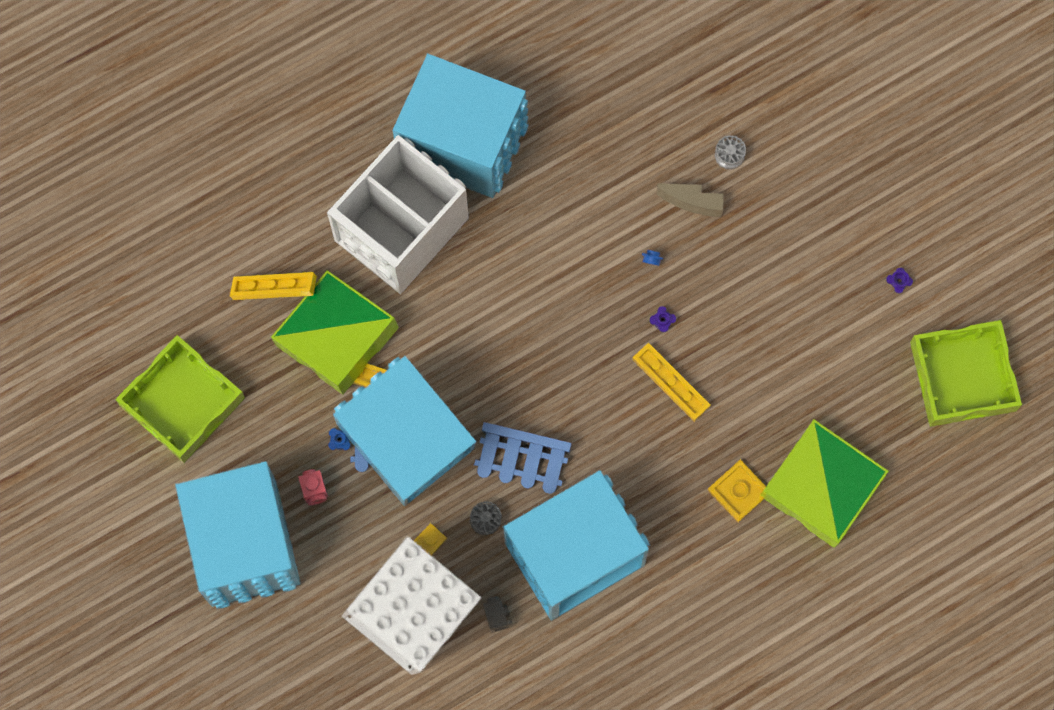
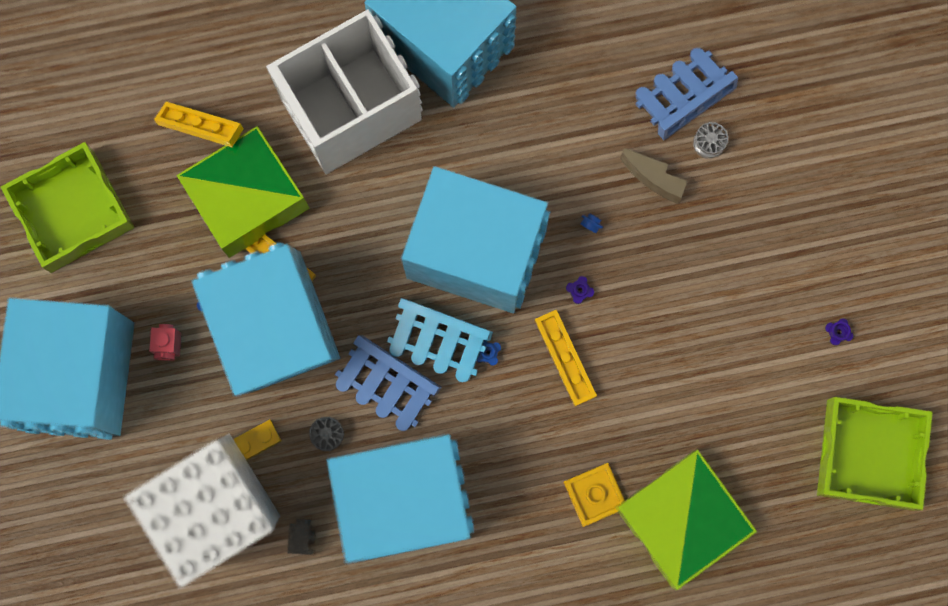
camera: 20 degrees right, 5 degrees up
(544, 397) = (429, 330): none -> medium azure fence
(560, 304) = (475, 240): none -> medium azure piece
(601, 406) = (492, 359): none -> blue plate
(699, 132) = (686, 110): none -> medium blue fence

